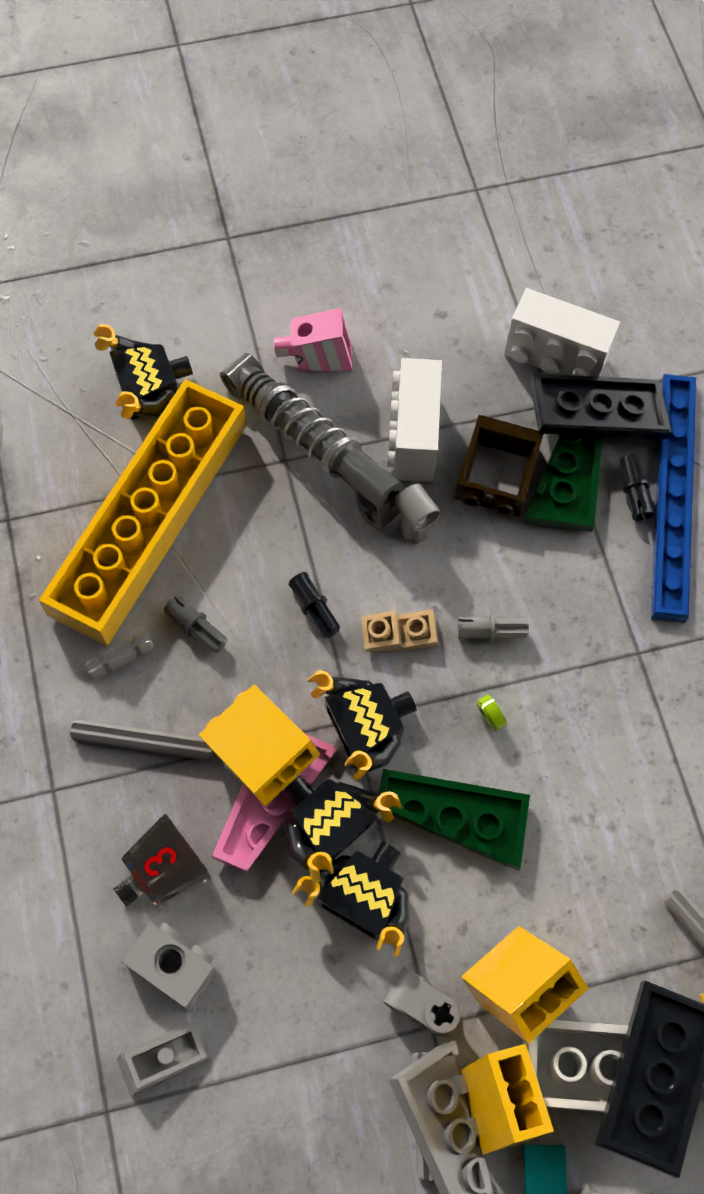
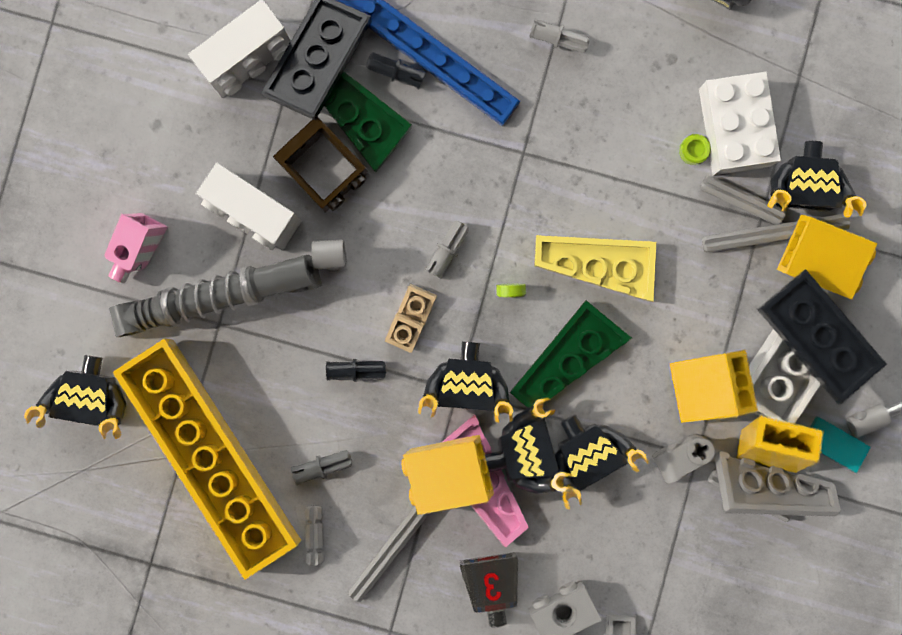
camera: 55 degrees left, 20 degrees up
(582, 797) = (608, 263): none -> light yellow wing

